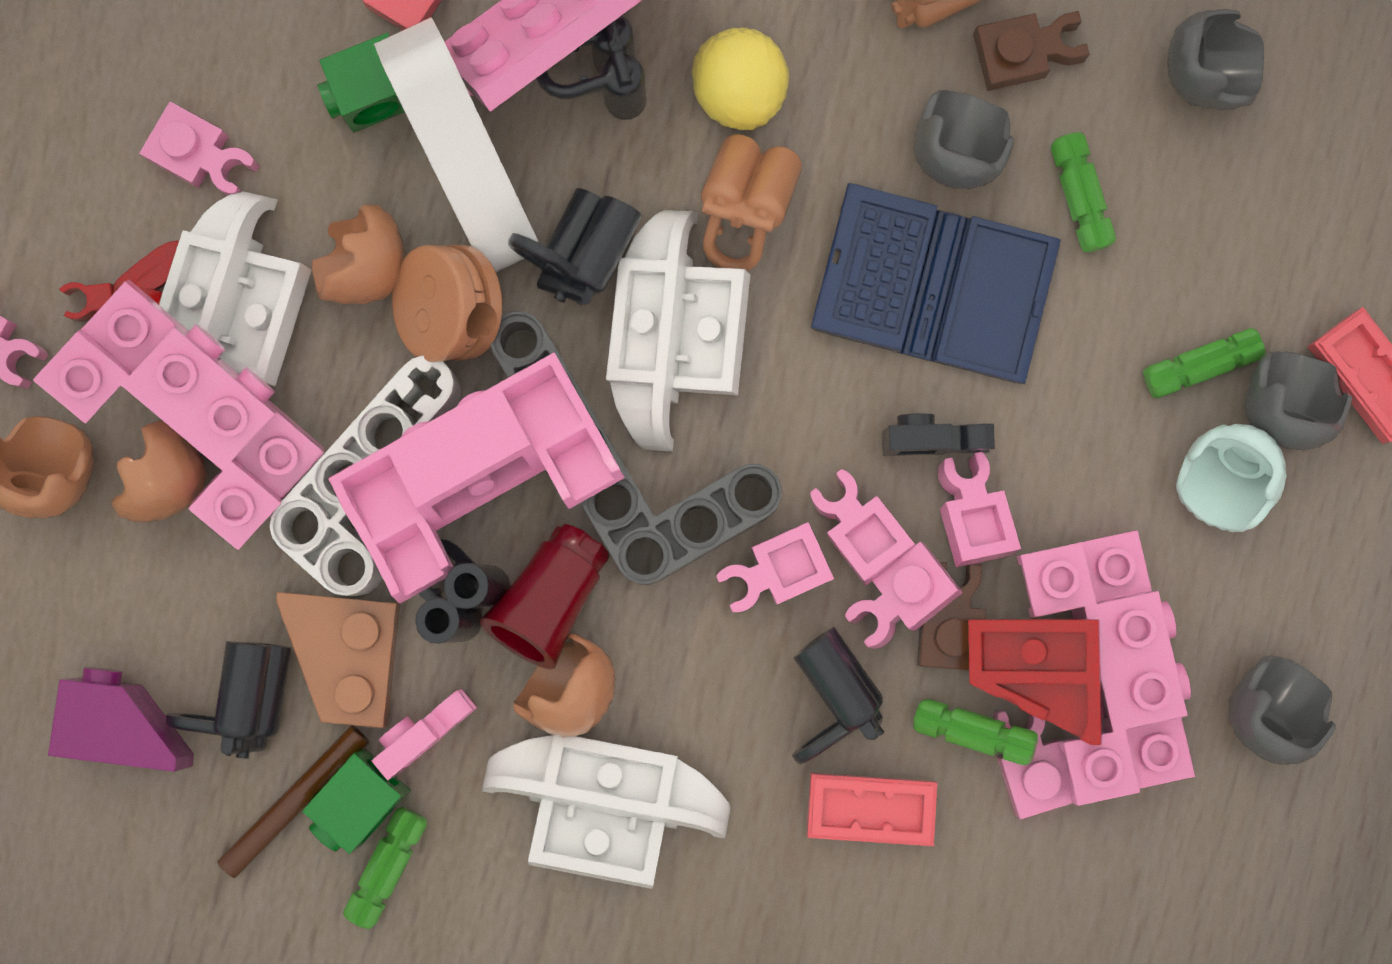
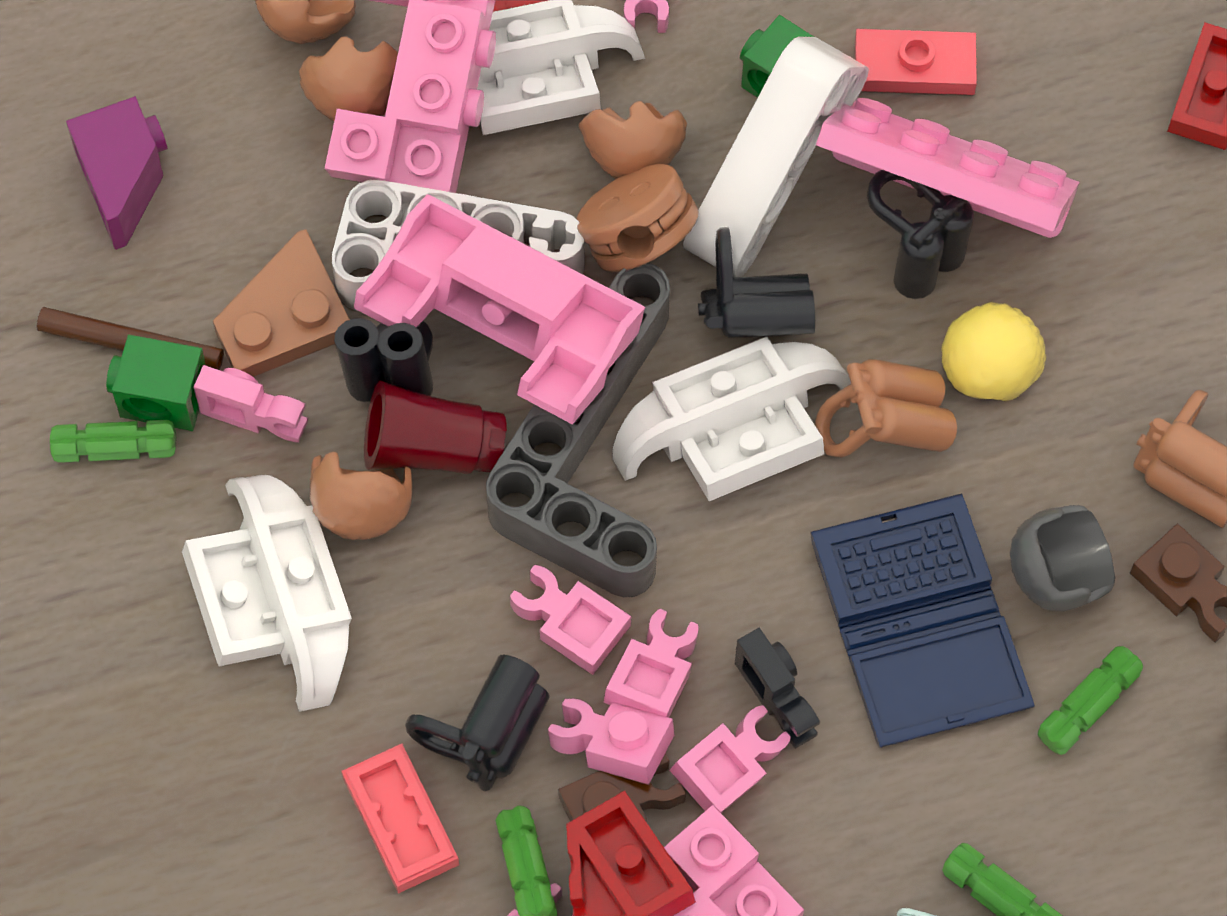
camera: 60 degrees right, 20 degrees down
(247, 698) = (200, 248): black piece -> none

